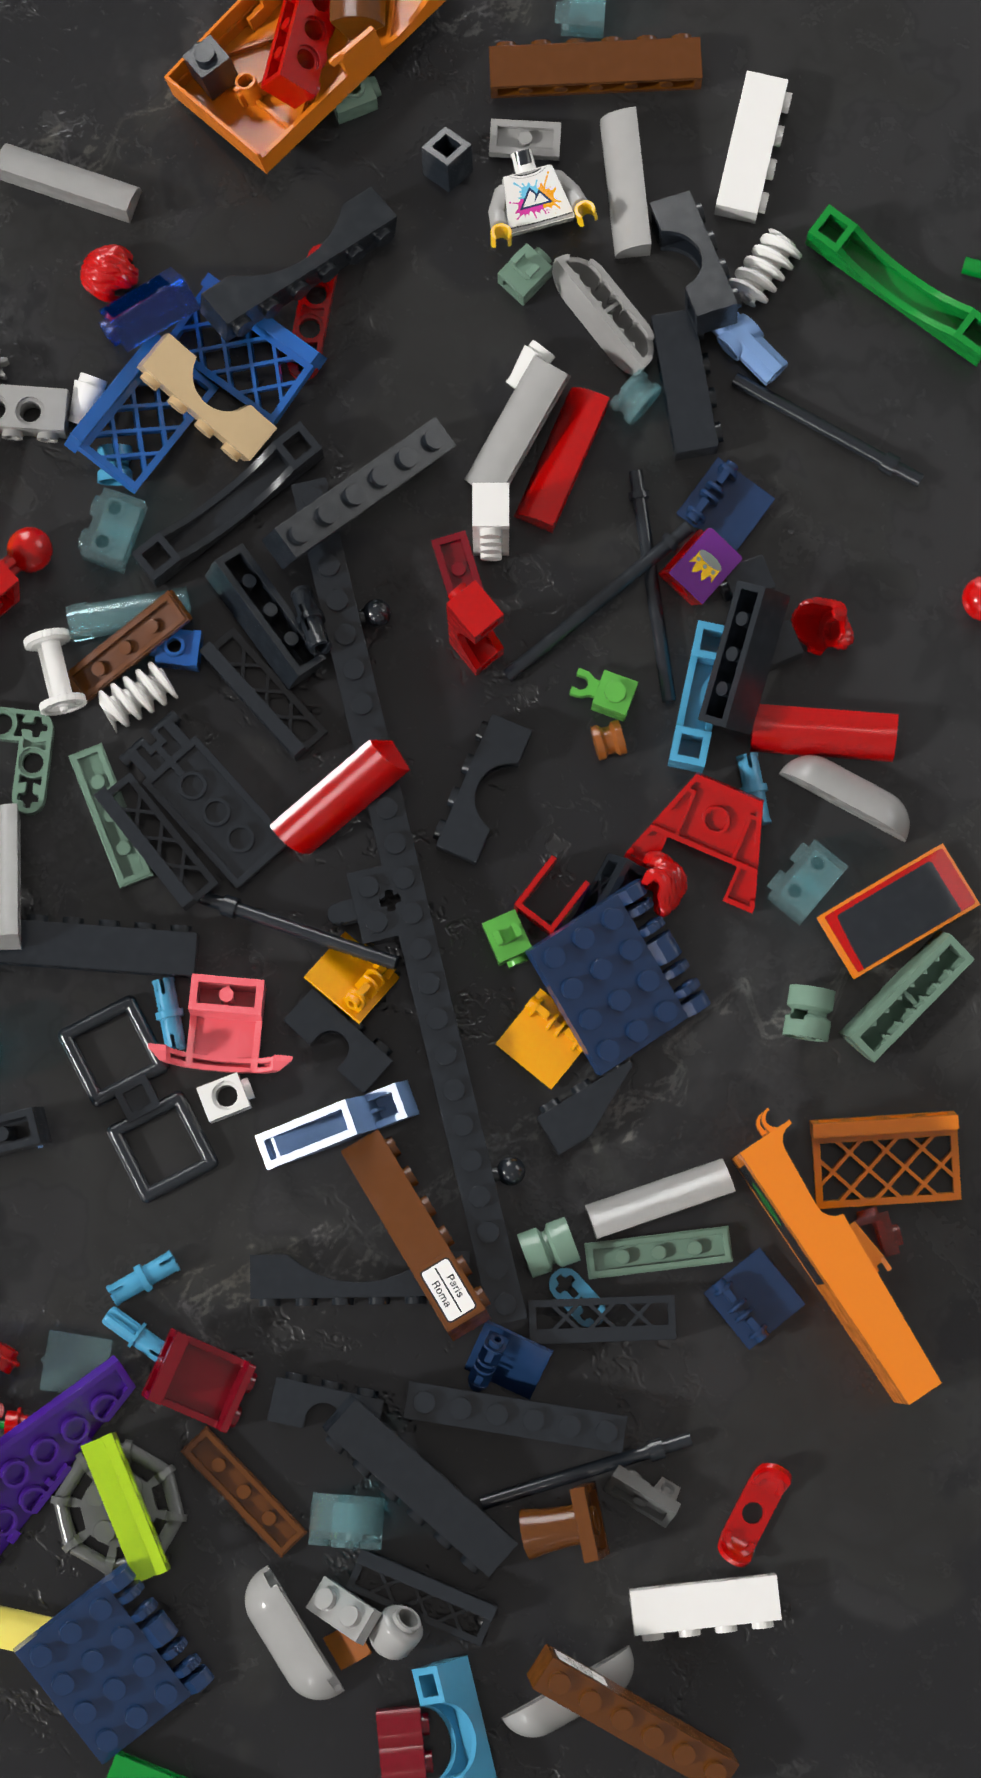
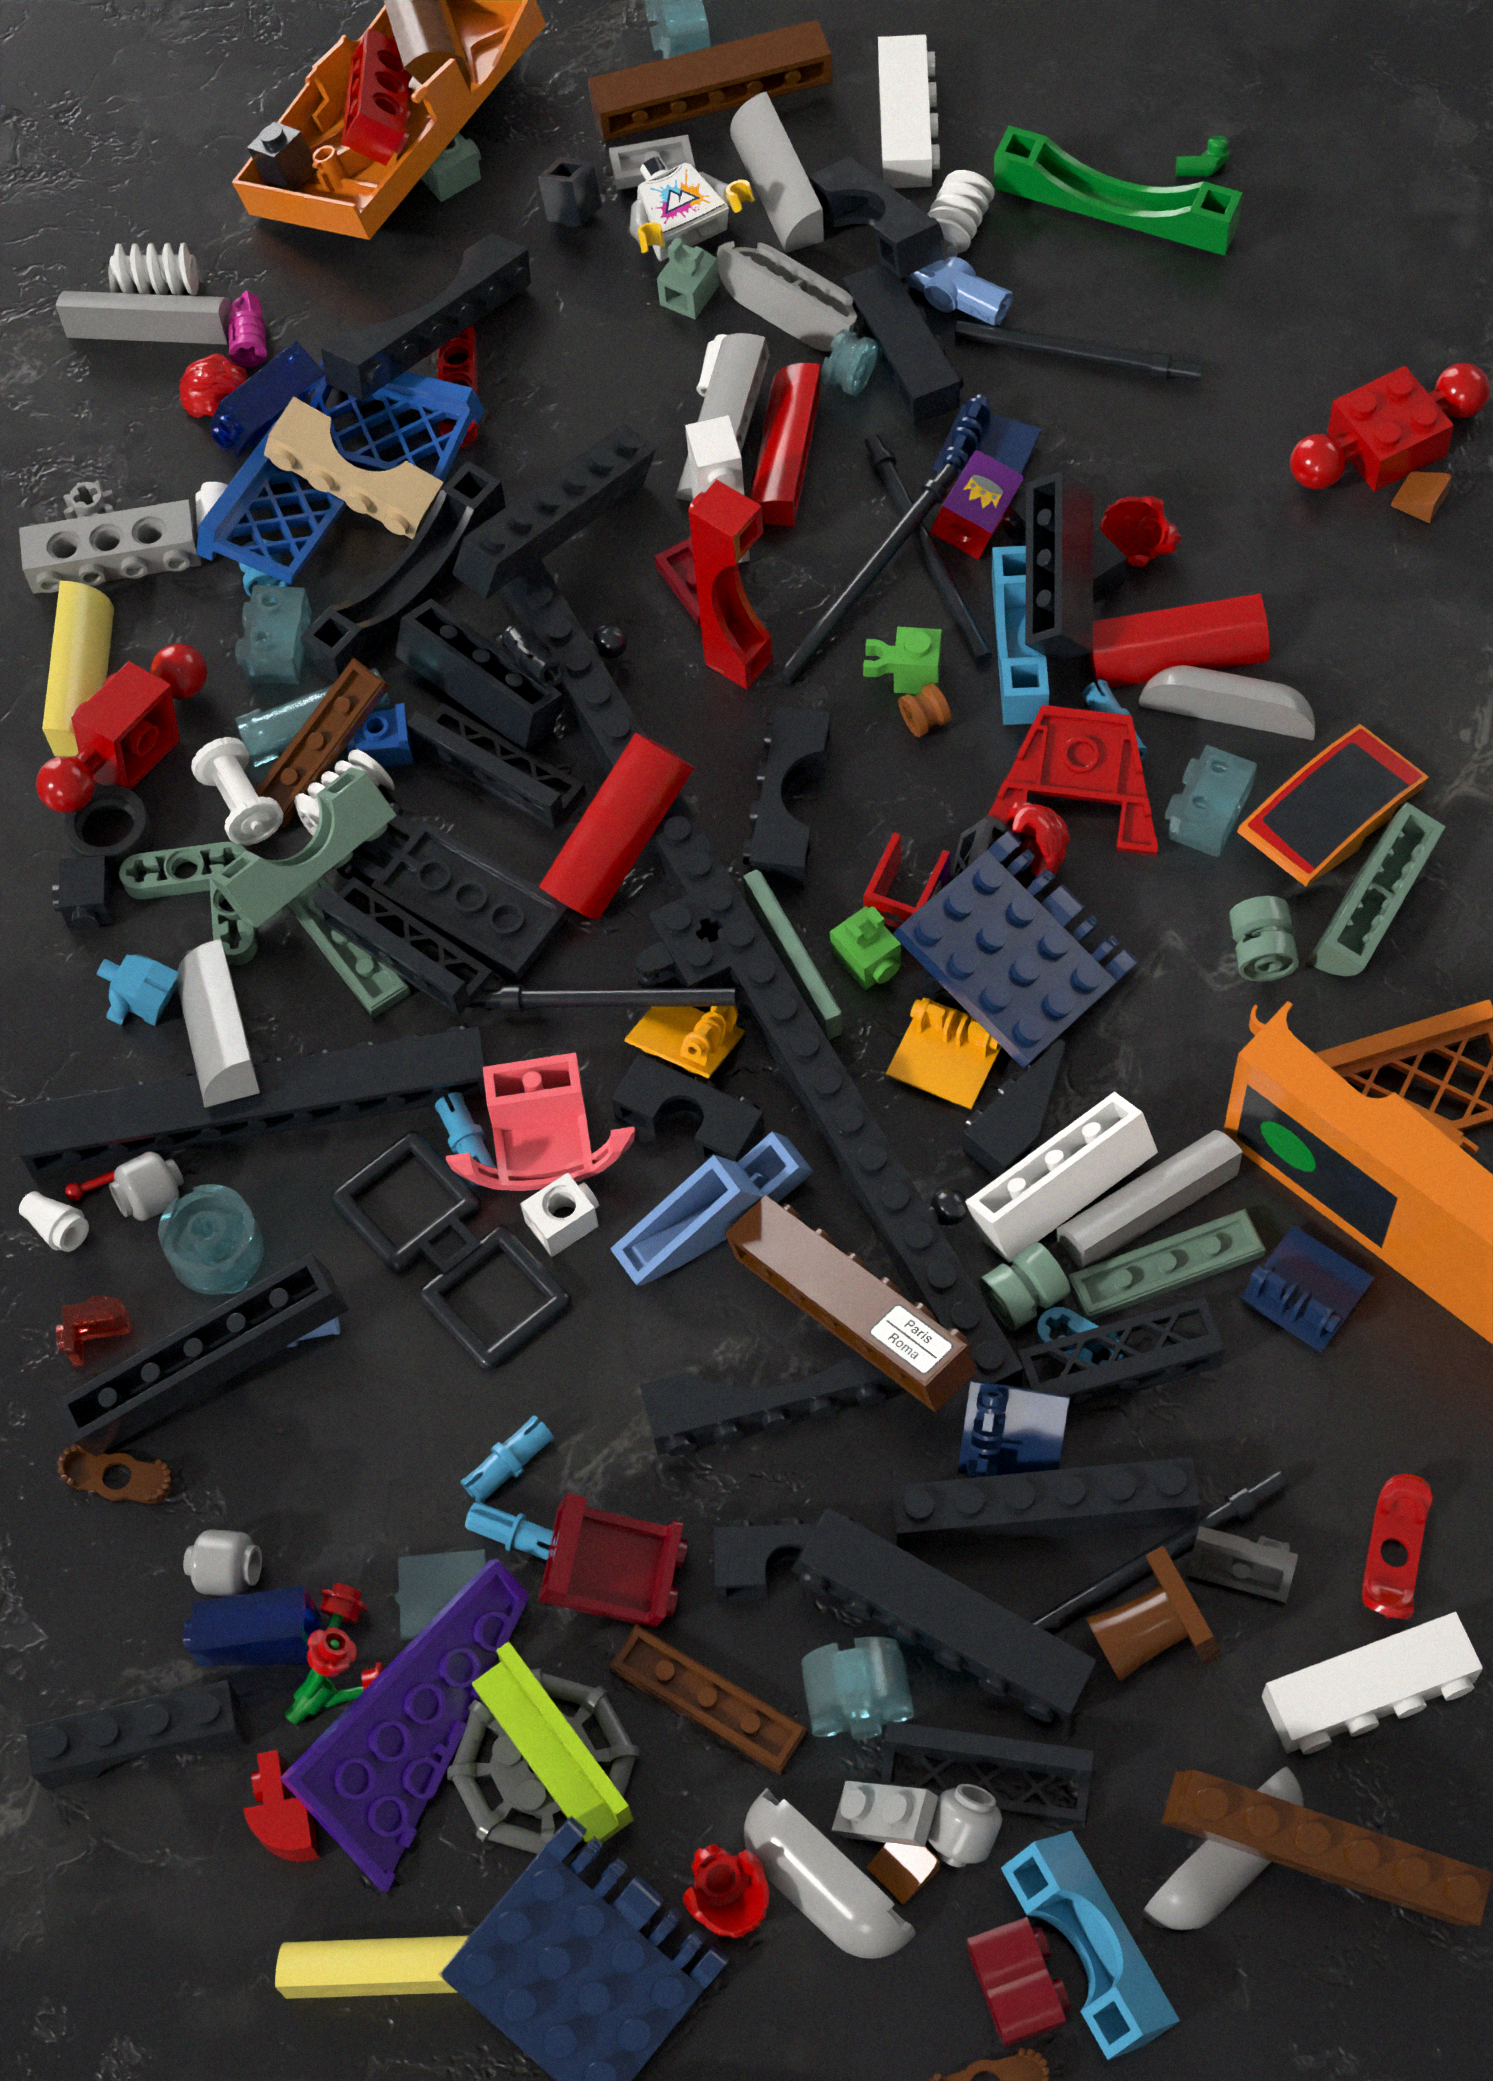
camera: 10 degrees left, 20 degrees down
(63, 768) = (349, 814): none -> sand green arch
(81, 141) = (153, 271): none -> white piece
(148, 219) = (247, 331): none -> dark pink hinge
(223, 1636) = (728, 1891): none -> red hair
(450, 927) = (792, 954): none -> sand green tile
(600, 1170) = (1062, 1176): none -> white brick

